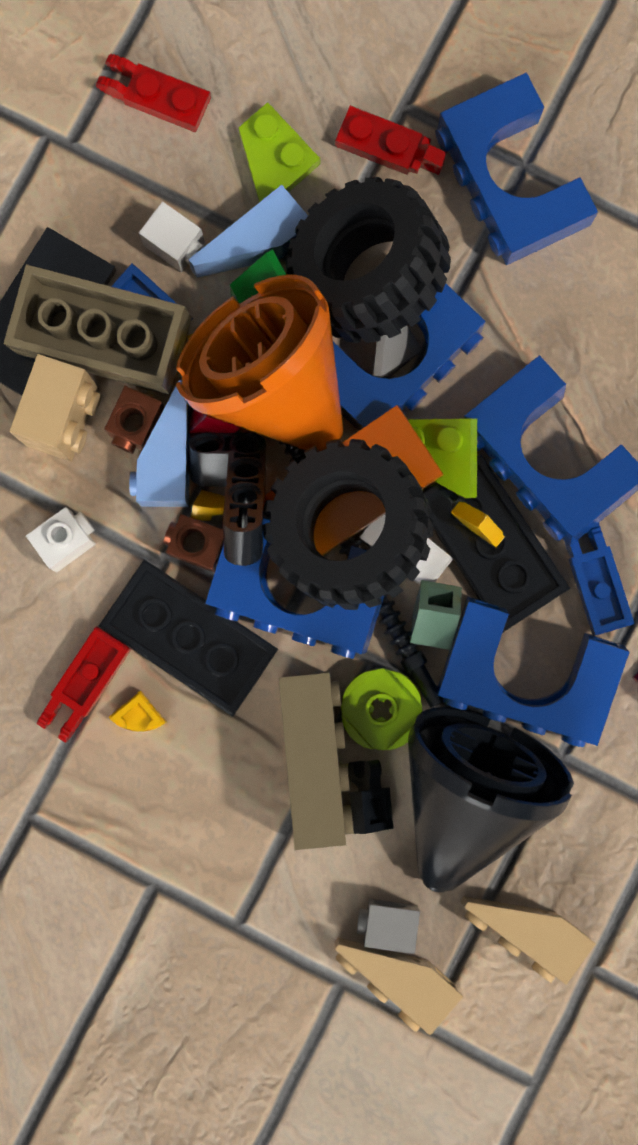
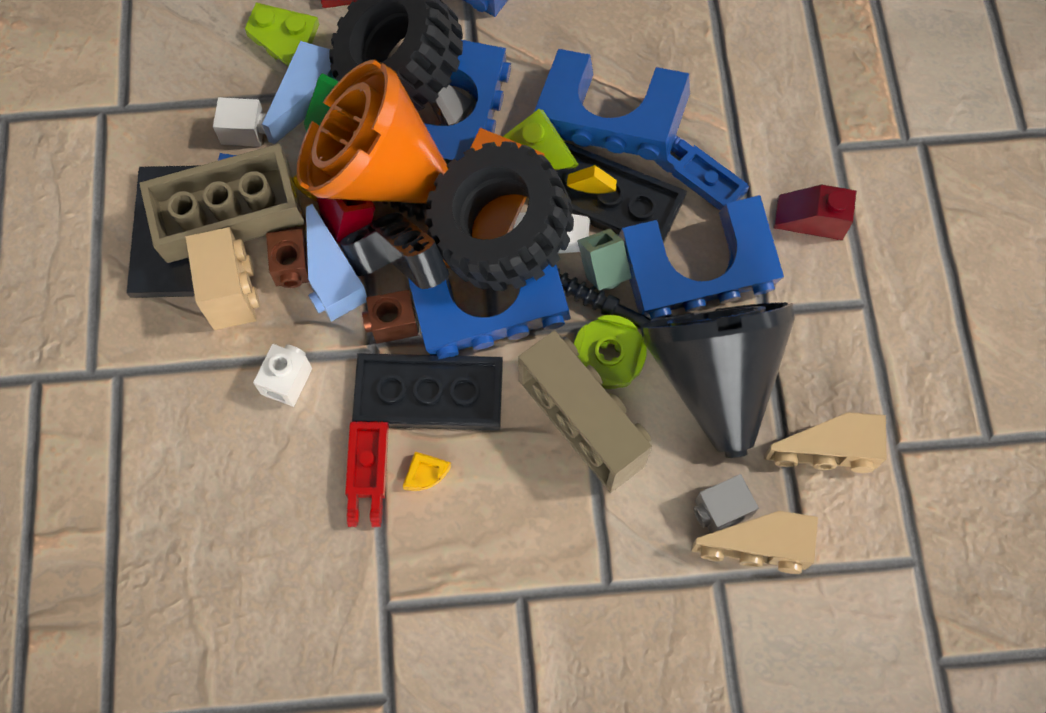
camera: 35 degrees left, 15 degrees down
(156, 93) = (167, 41): red hinge -> none
(207, 505) = (389, 284): yellow tile -> none
(371, 803) = (650, 418): black plate -> none

